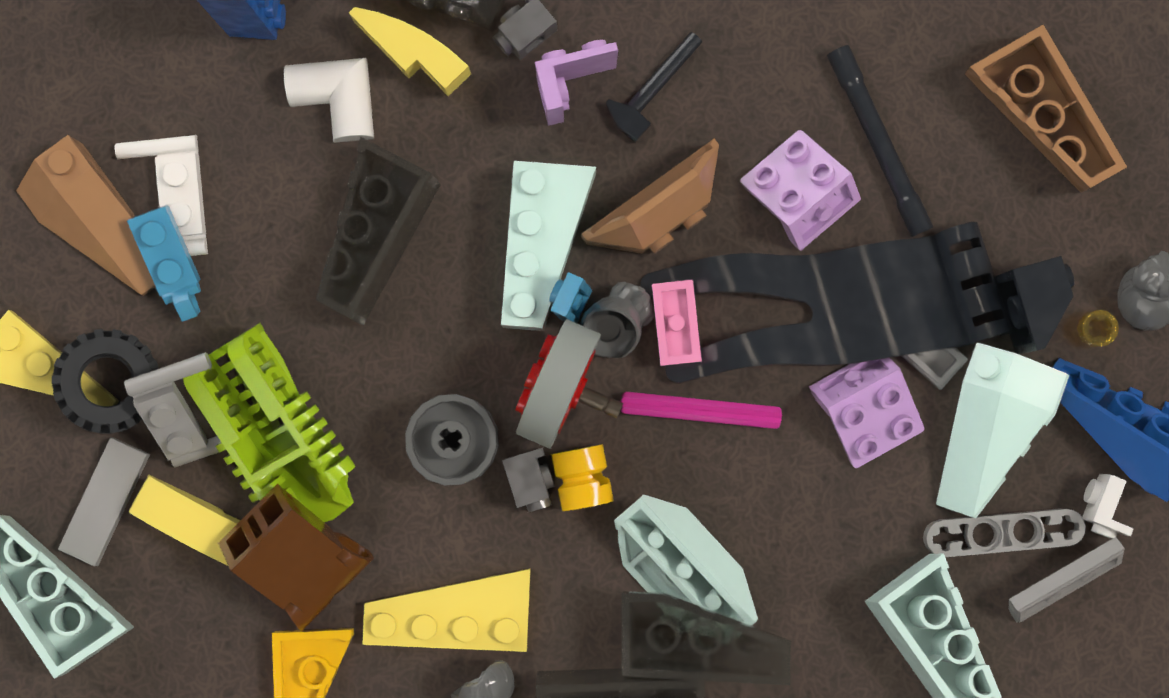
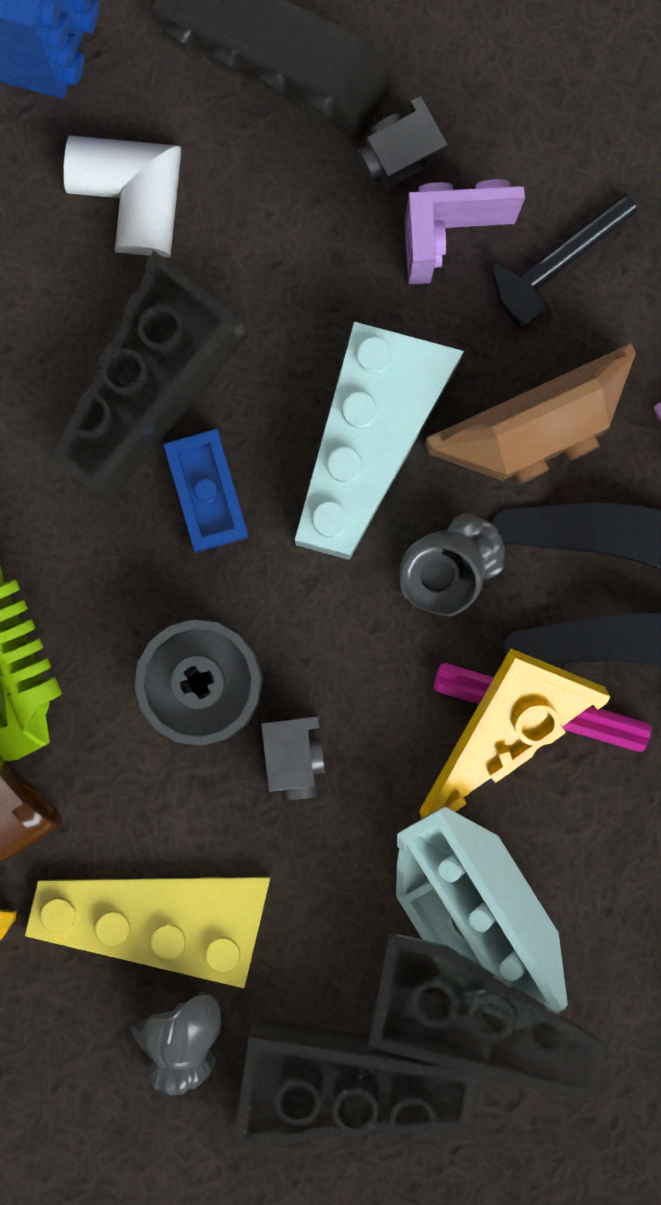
camera: 10 degrees right, 0 degrees up
(412, 49) = (245, 146): light yellow slope -> none
(431, 301) = (206, 490): none -> blue plate
(560, 384) = (360, 636): light grey wheel -> none
(570, 297) = (394, 522): dark azure plate -> none
(582, 478) = (364, 768): yellow wheel -> none
(676, 322) = (532, 583): bright pink plate -> none
(682, 421) = (515, 717): none -> yellow wing

